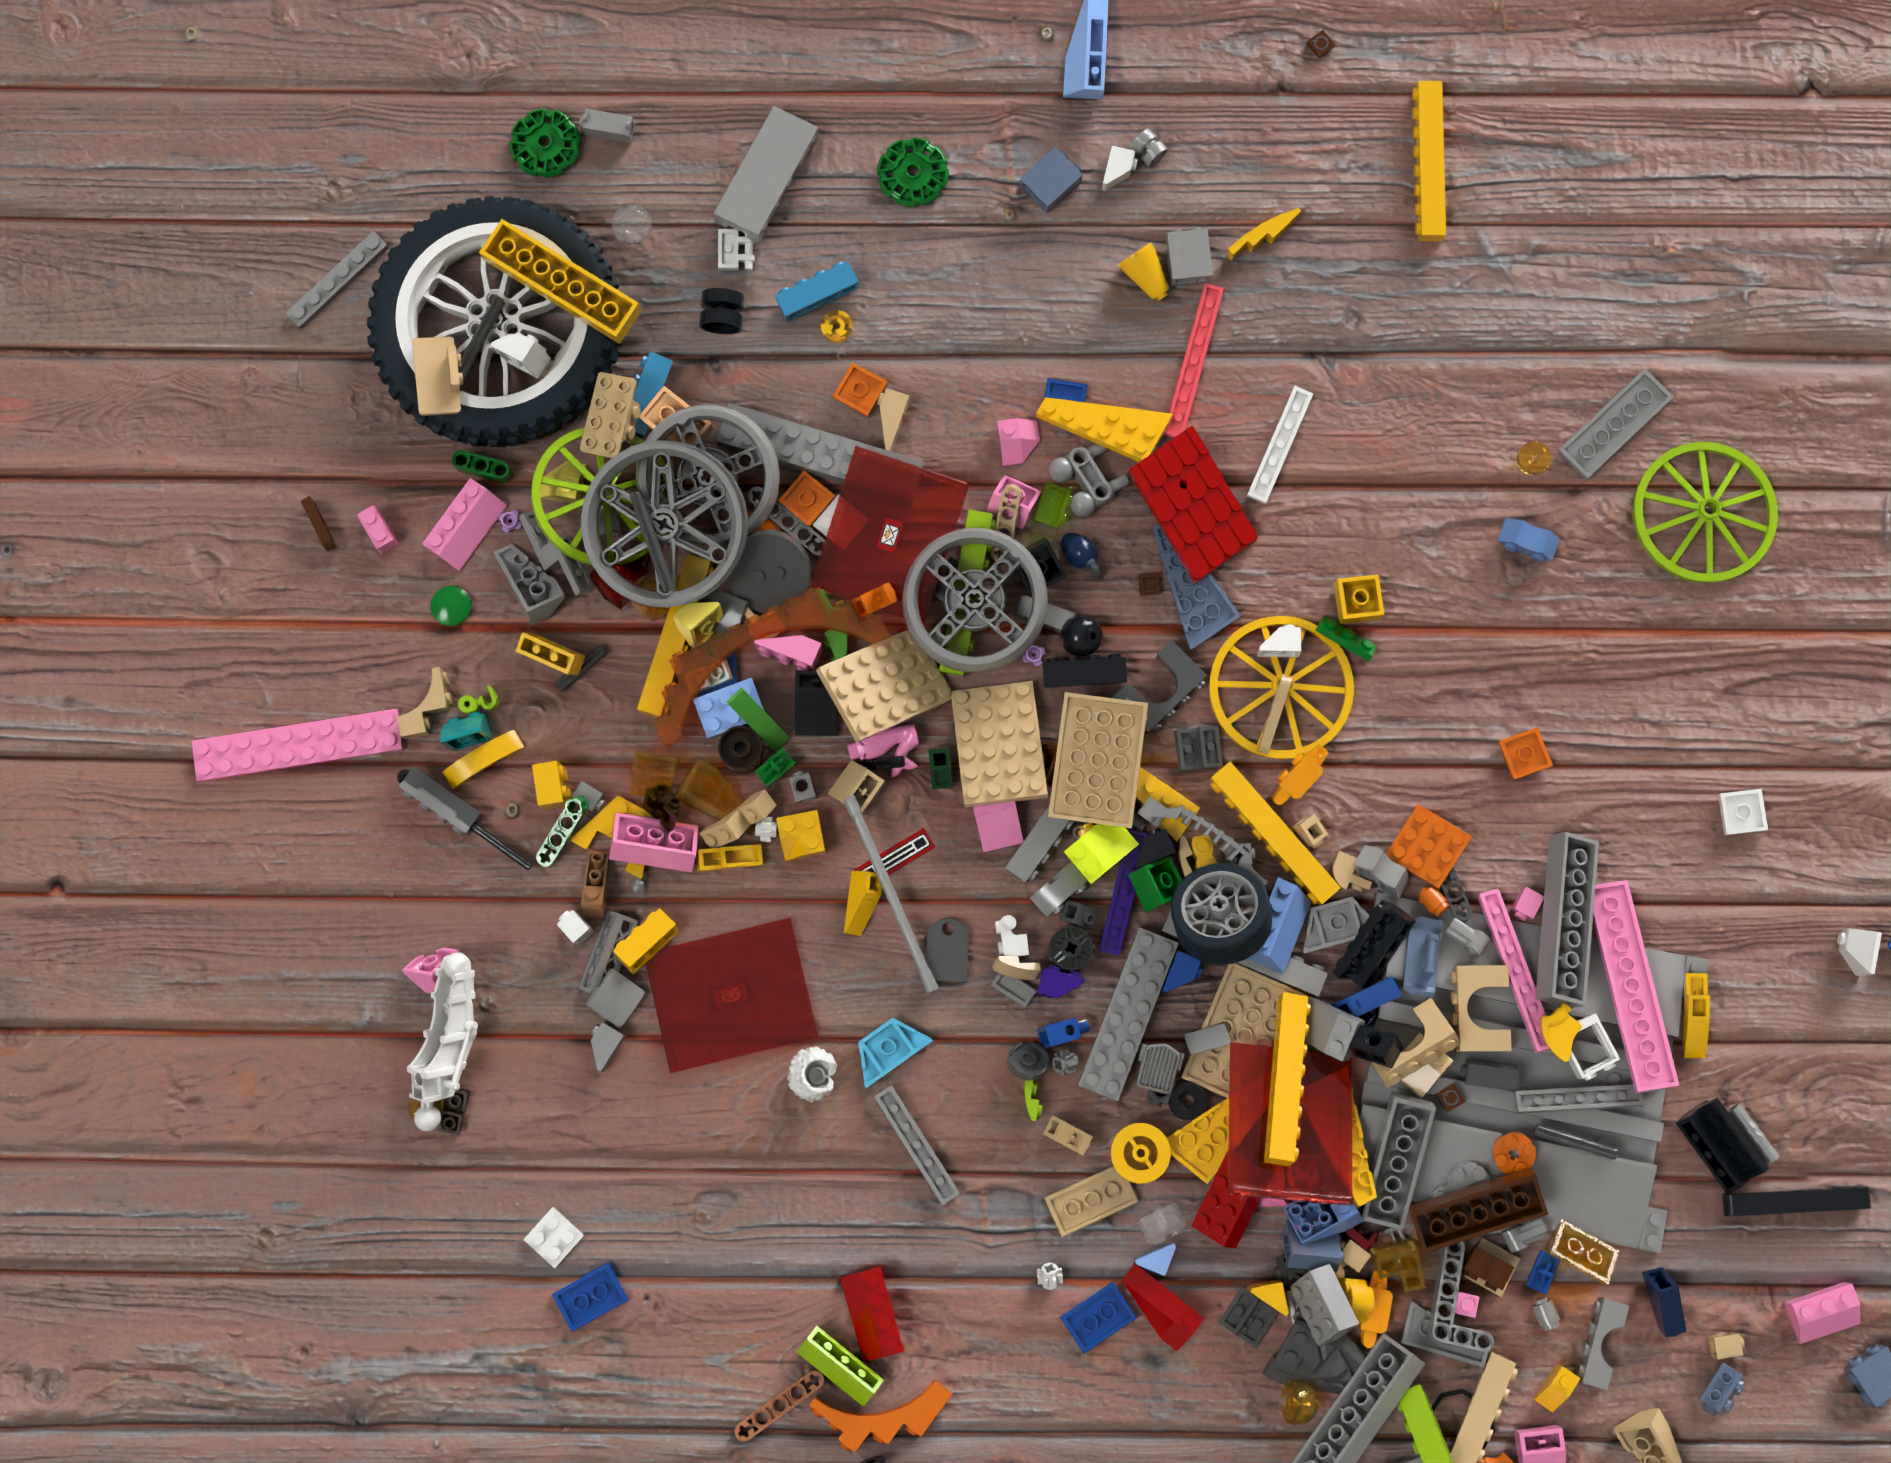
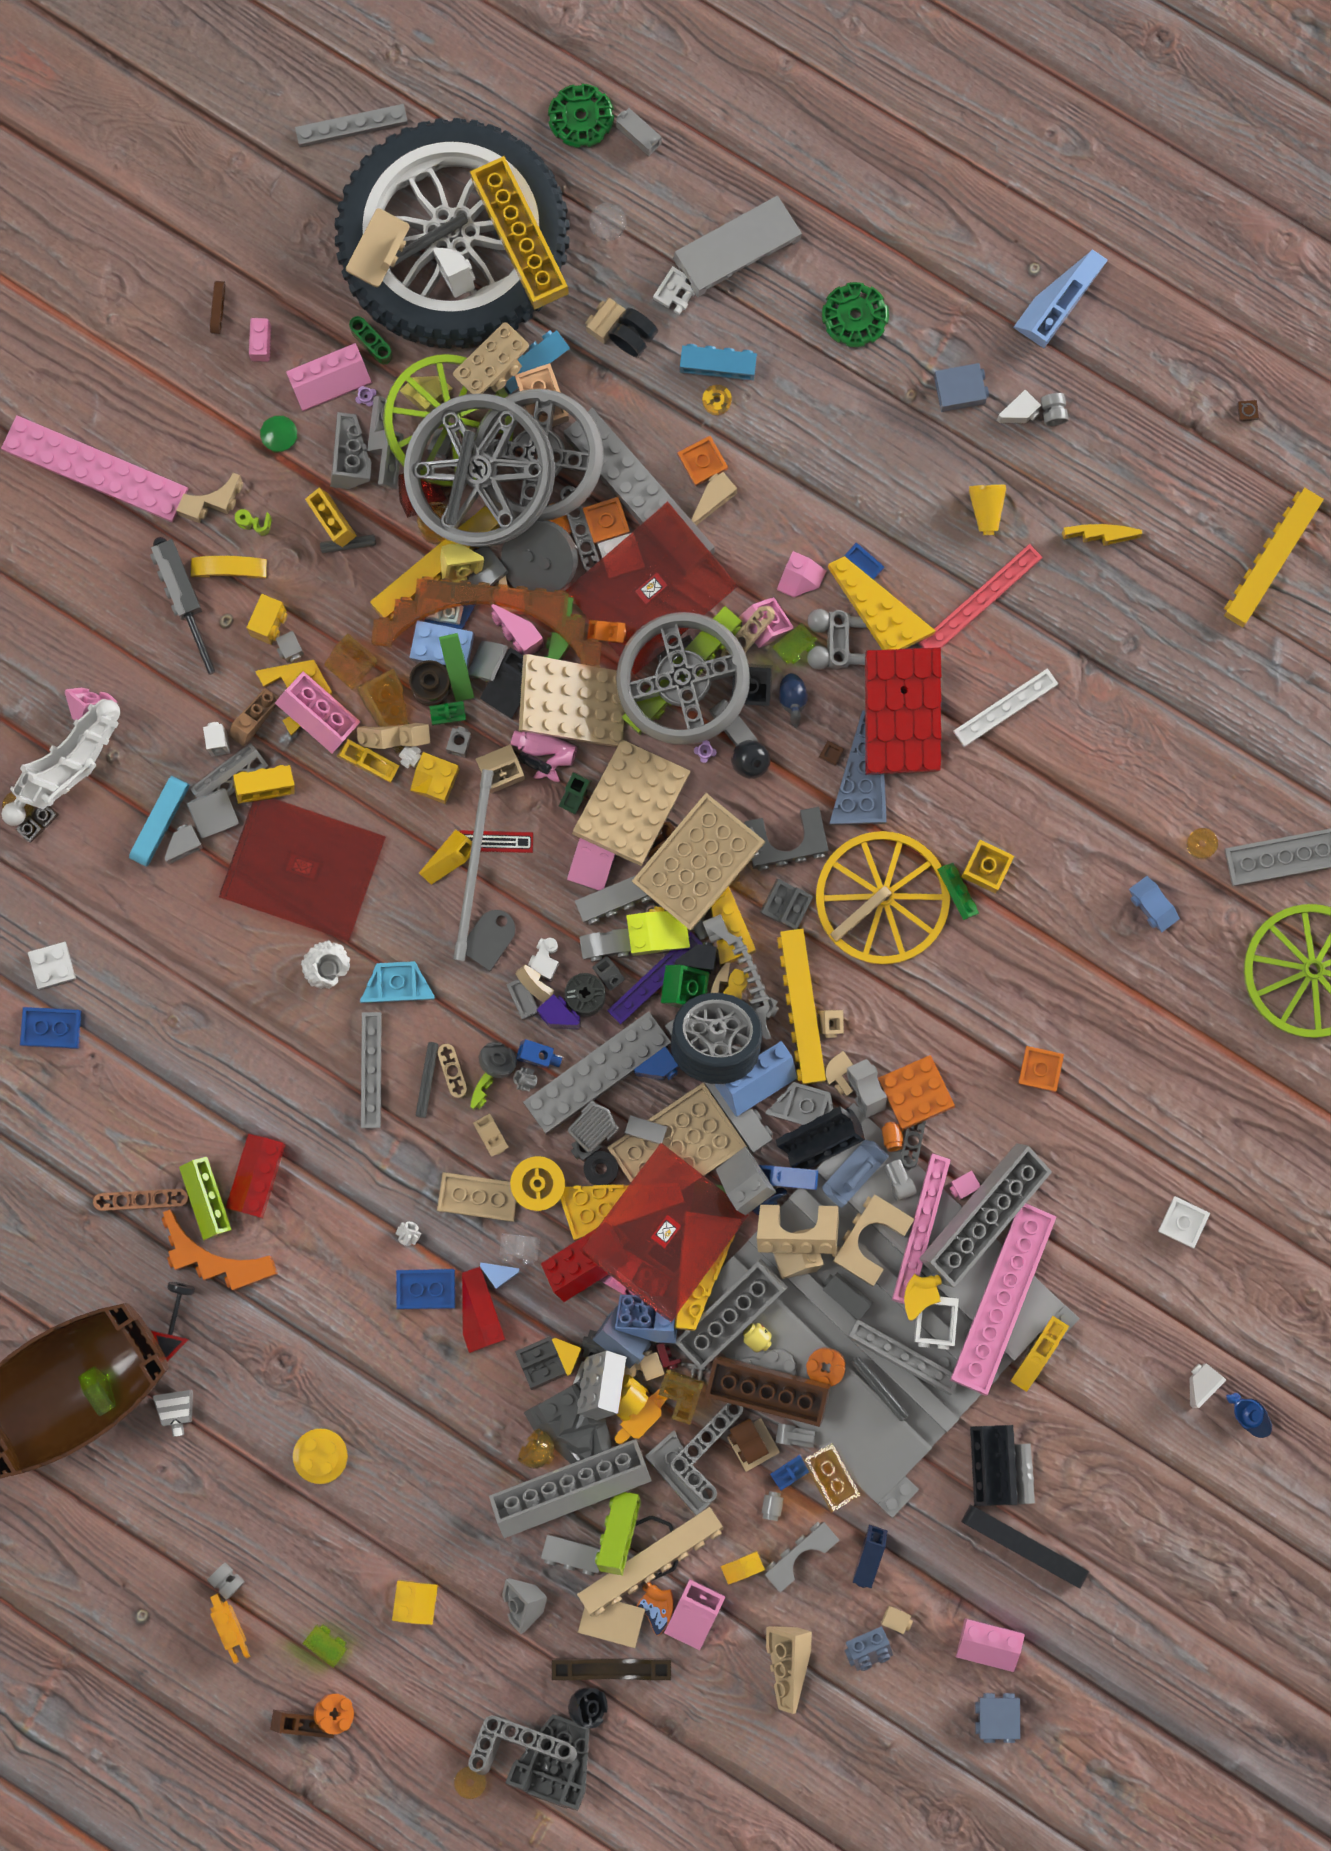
camera: 30 degrees right, 0 degrees up
(466, 732) = (228, 538): teal slope -> none
(561, 830) = (253, 659): beam -> none
(569, 1037) = (159, 821): none -> medium azure beam
(662, 803) = (344, 688): dark brown cylinder -> none
(687, 316) = (604, 319): none -> tan brick
(781, 696) = (487, 660): none -> light grey slope
(974, 1120) = (427, 1078): none -> dark grey axle
(1008, 1102) = (452, 1056): none -> tan beam
(1084, 672) = (735, 789): black brick -> none
(1189, 256) = (1029, 514): light grey brick -> none
(1282, 643) = (903, 862): white slope -> none
(1286, 1080) = (684, 1195): yellow brick -> none
(1300, 775) = (851, 975): light orange hinge -> none
(1376, 1046) = (769, 1214): black brick -> none
(1434, 1166) = (757, 1337): none -> light yellow head
(1450, 1097) = (804, 1293): reddish brown tile -> none
(1466, 1304) = (713, 1457): bright pink brick -> none

